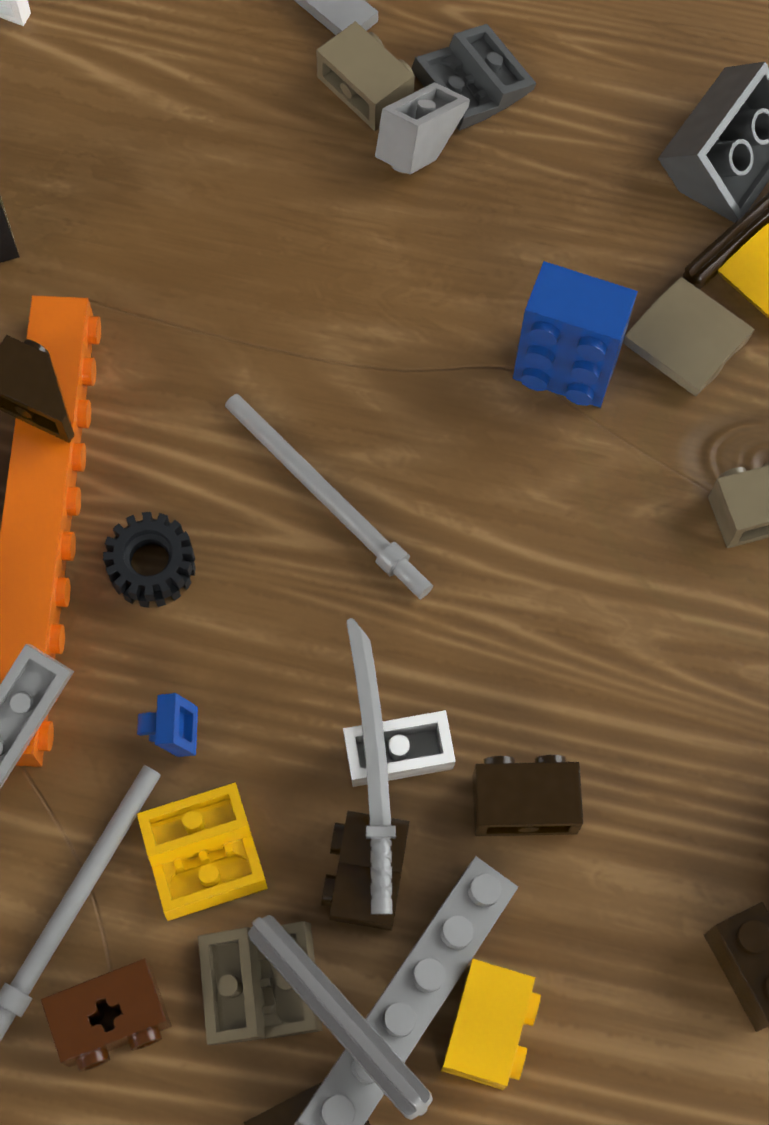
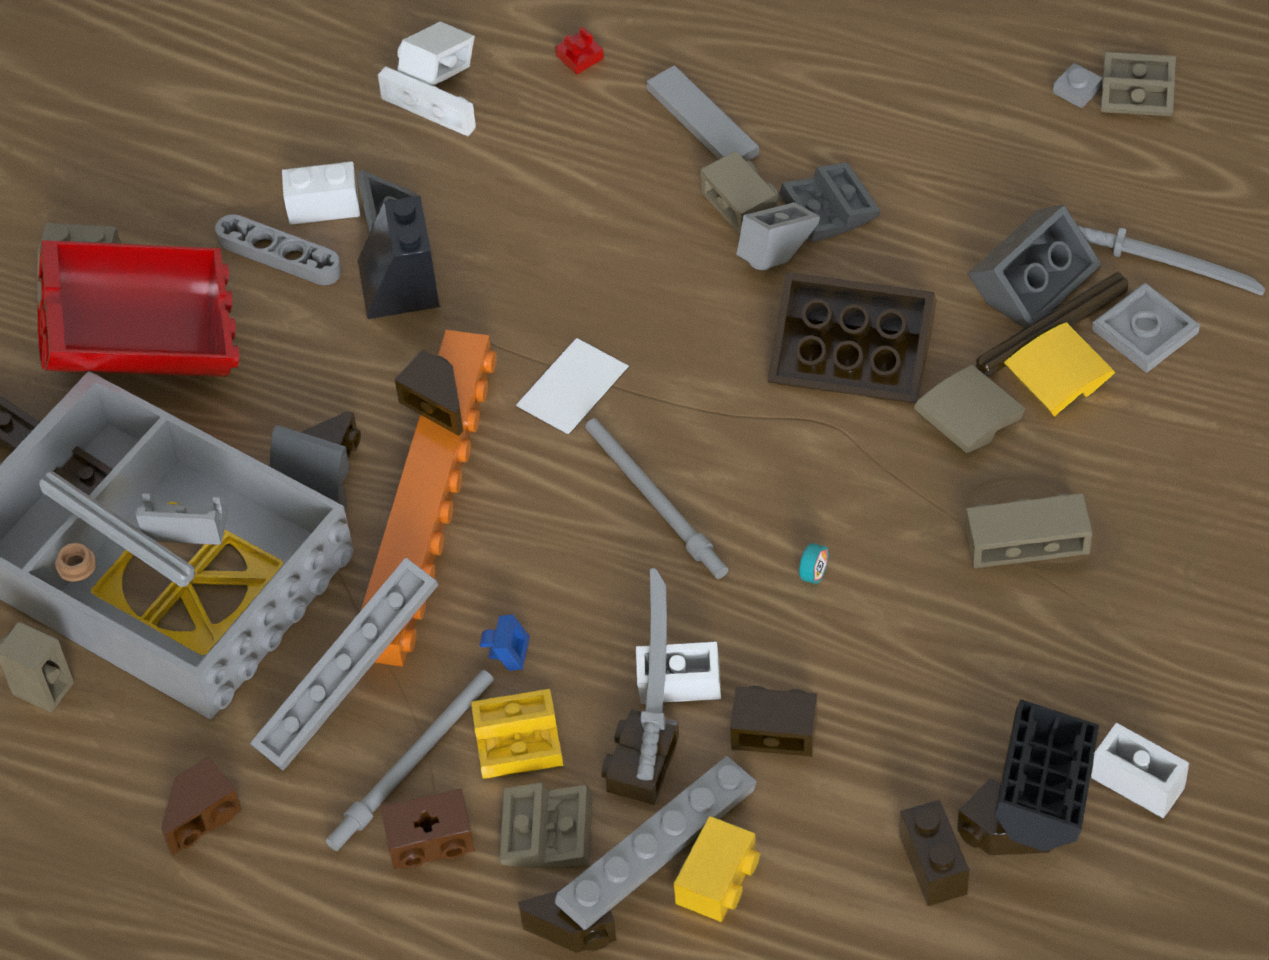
camera: 15 degrees right, 15 degrees down
(142, 533) = (503, 511): black tyre -> none
(199, 349) = (572, 386): none -> white sticker
(341, 1018) = (599, 832): light grey axle -> none
(504, 234) = (852, 337): none -> dark brown slope
(538, 568) = (813, 563): none -> teal tile
(572, 334) = (865, 392): blue brick -> none

